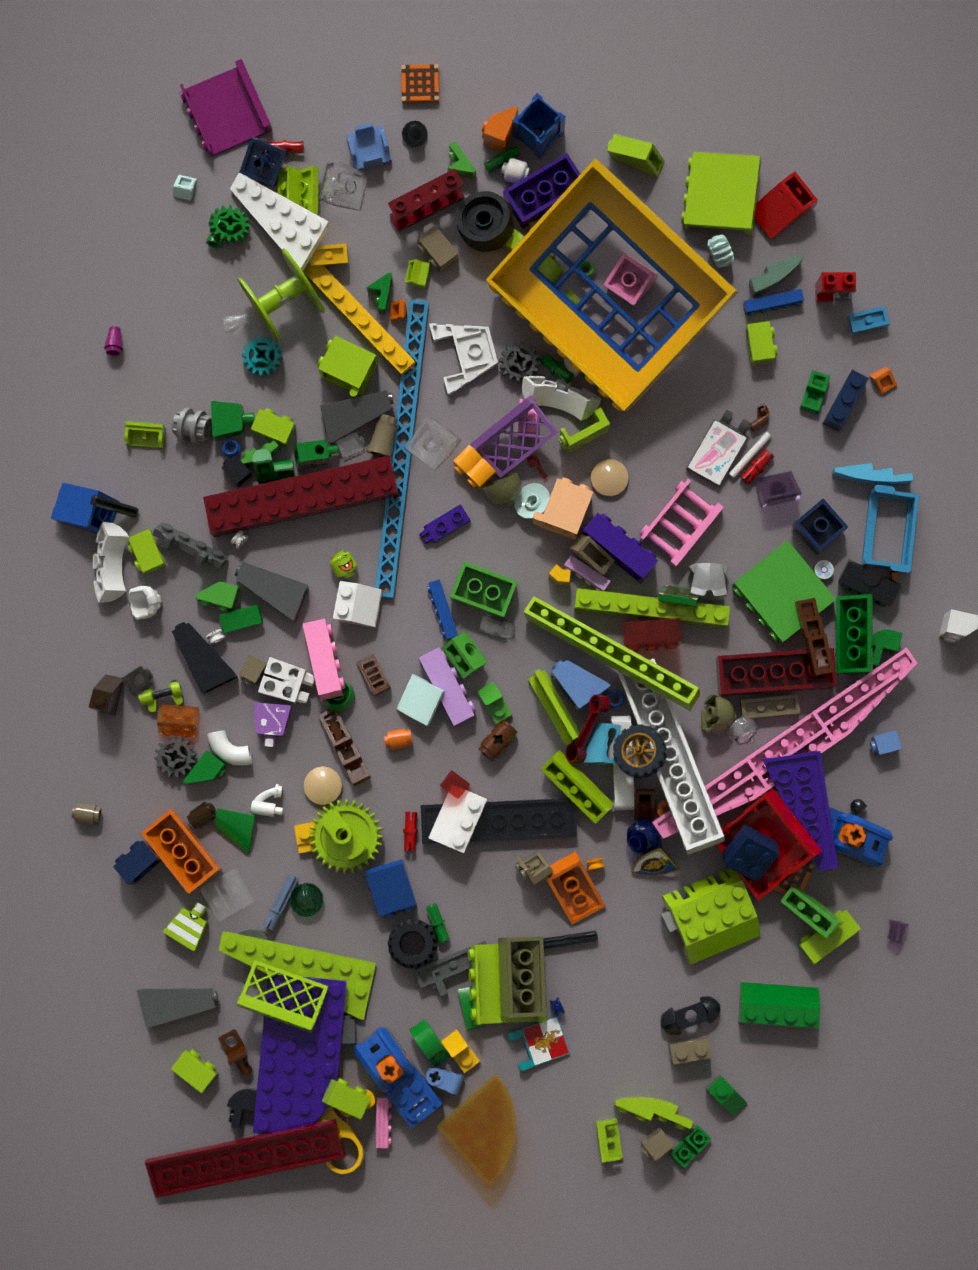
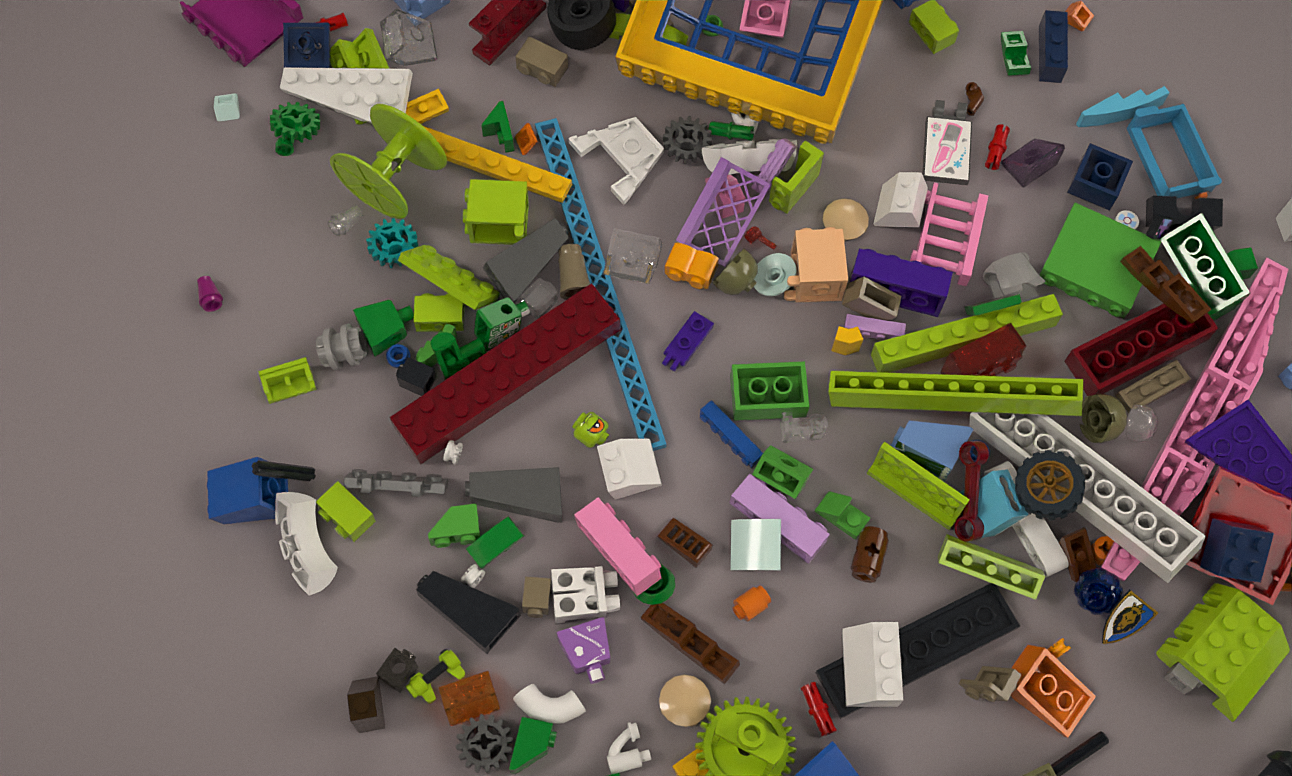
camera: 30 degrees left, 15 degrees down
(144, 602) = (366, 570): white hair -> none
(291, 403) = (449, 277): none -> lime plate
(417, 273) = (531, 95): lime piece -> none
(455, 784) = (848, 621): clear red panel -> none
(574, 412) = (775, 163): none -> lavender piece
(656, 483) = (901, 201): none -> white slope
(750, 454) = (982, 141): white bar -> none
(839, 588) = (1159, 226): none -> black tile

